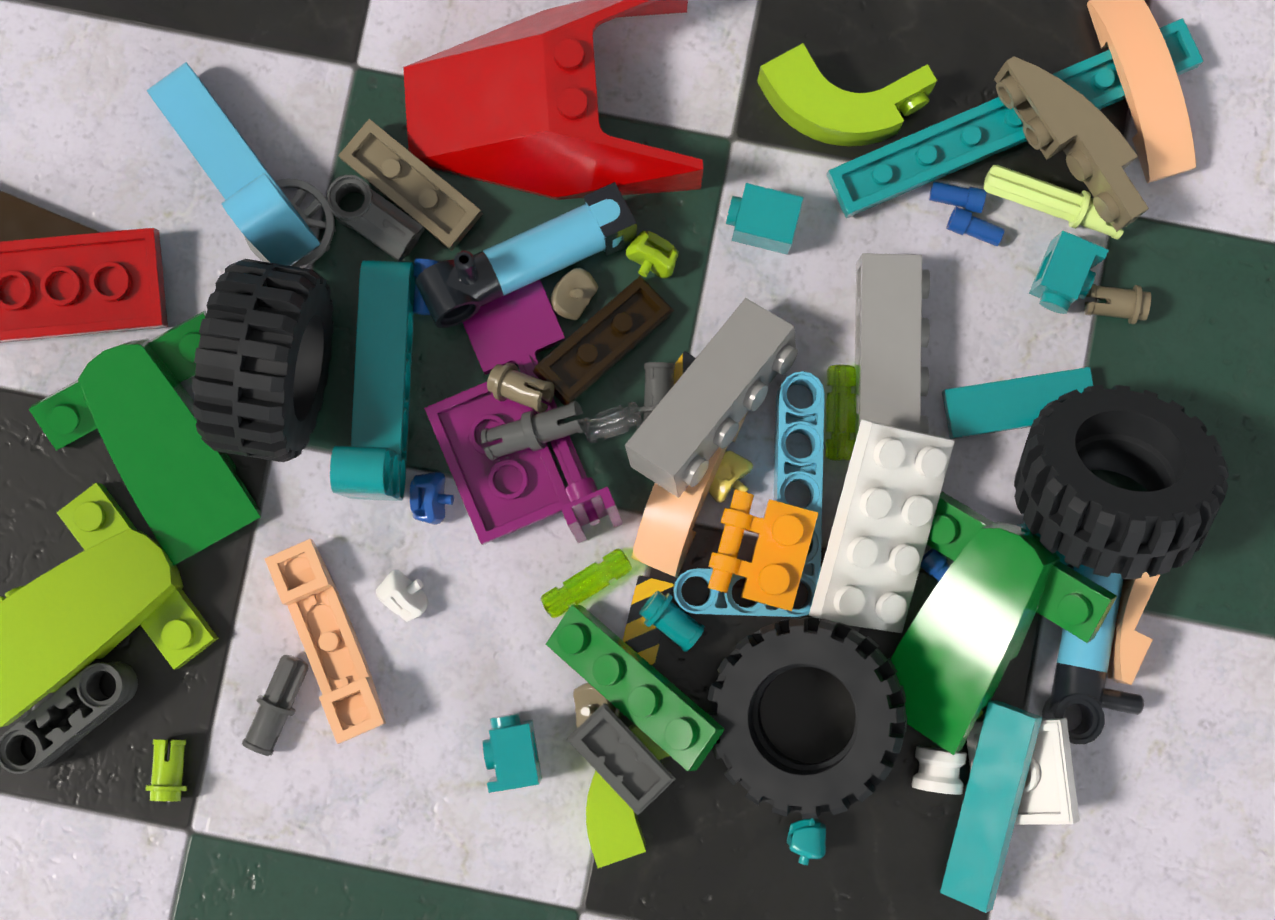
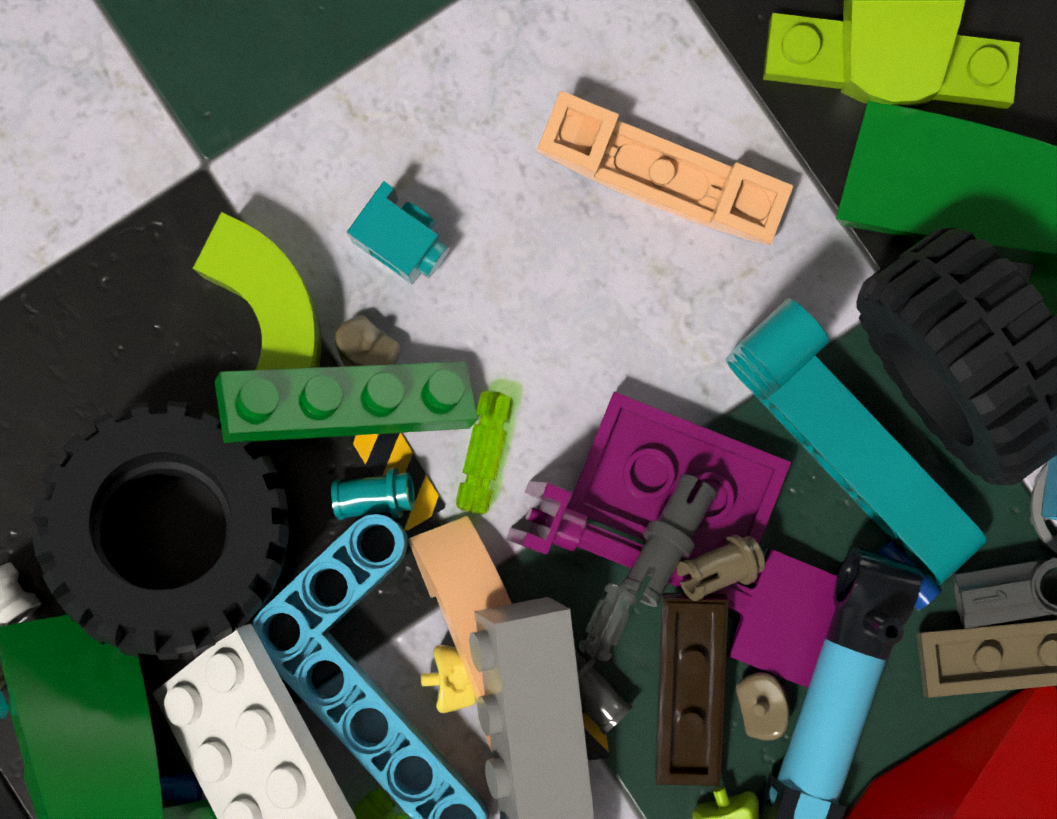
camera: 135 degrees right, 0 degrees up
(276, 705) = (650, 71): dark grey axle -> none
(402, 595) = (637, 277): white piece -> none
(428, 497) = (703, 385): blue piece -> none
(621, 758) = (293, 325): dark grey plate -> none
(778, 552) = (331, 649): light orange plate -> none
(807, 839) = (59, 421): teal piece -> none

